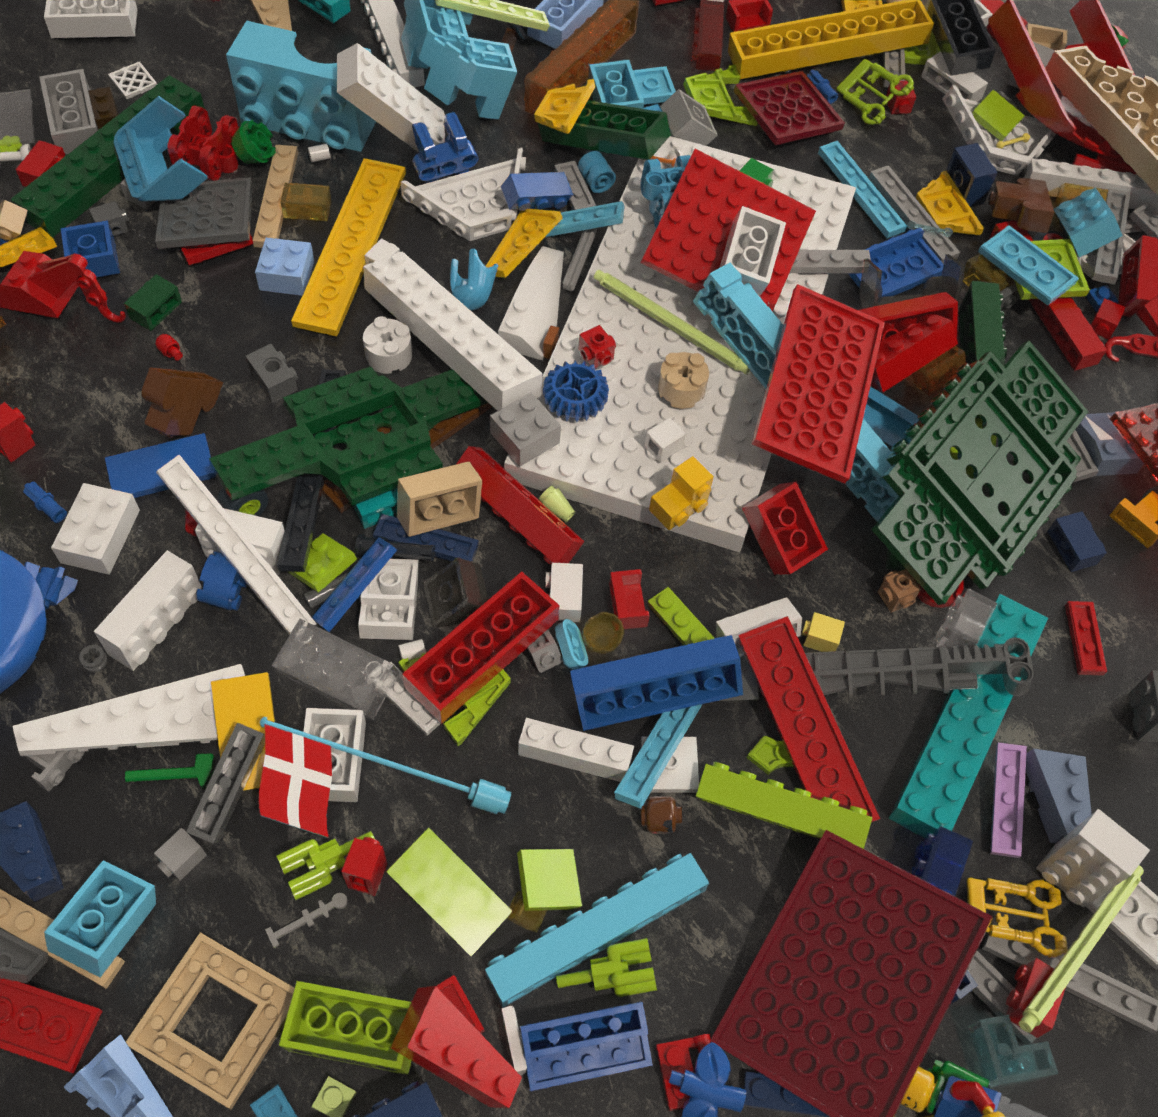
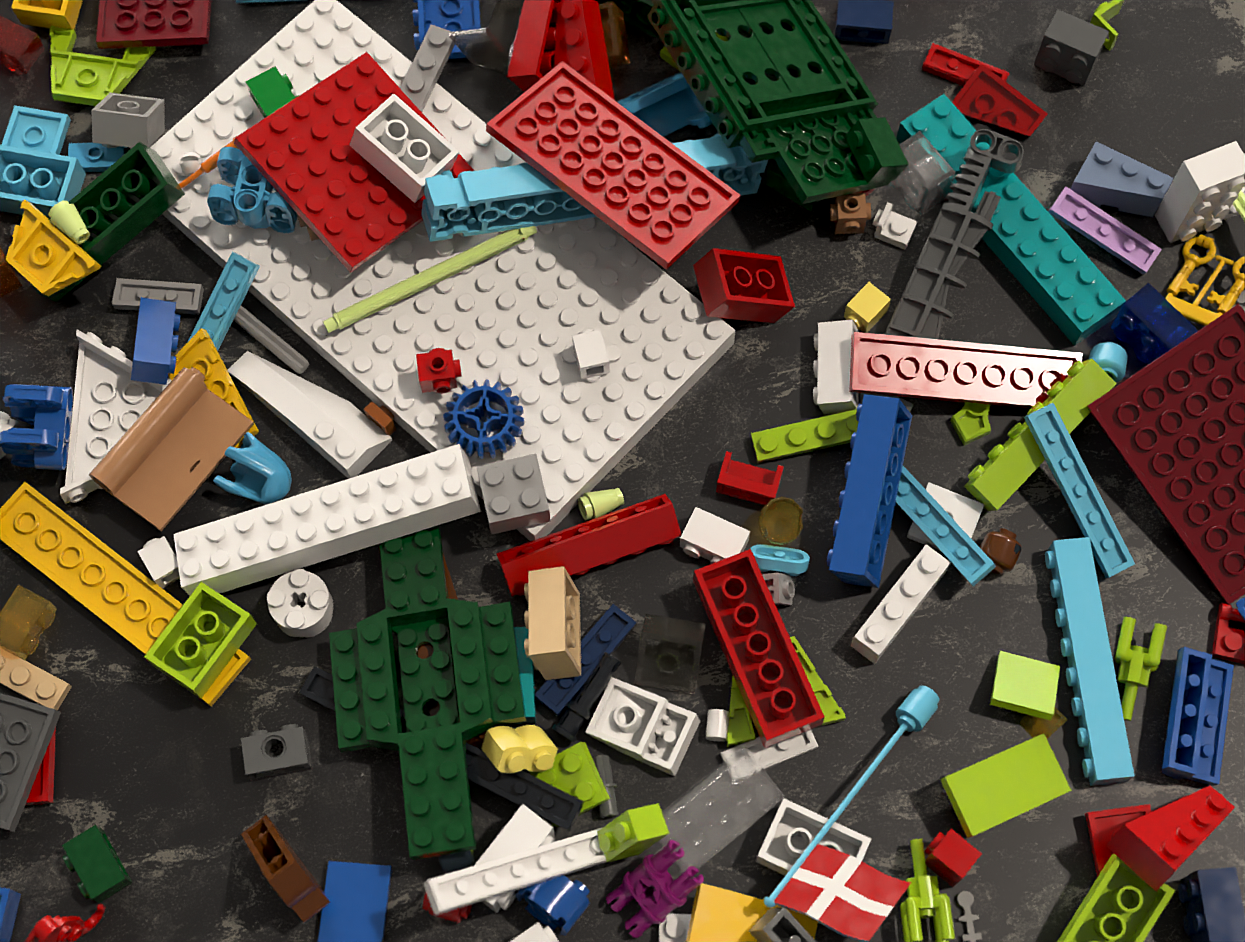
camera: 60 degrees left, 10 degrees up
(168, 346) = (174, 866): red cylinder -> none
(254, 645) = (667, 894): none -> magenta pin
(284, 266) = (118, 683): light blue brick -> none
(287, 604) = (632, 832): none -> lime brick
(329, 511) = (519, 748): none -> light yellow brick
(330, 291) = (200, 640): none -> lime brick
(354, 584) = (617, 752): blue tile -> none
(459, 222) = (156, 455): none -> medium nougat door
(514, 1040) = (1167, 781): white tile -> none
(590, 104) = (69, 221): none -> yellowish green cone
(596, 172) = (148, 260): dark azure wheel -> none
(683, 379) = (526, 285): tan brick -> none
(684, 495) = (671, 360): yellow brick -> none
(746, 857) = (1079, 490): none -> medium azure plate
(886, 844) = (1111, 359): none -> medium azure head
(908, 629) = (893, 227): none -> white bracket
(957, 574) = (876, 150): none -> dark green brick
(1072, 670) = (998, 103): none -> red wing

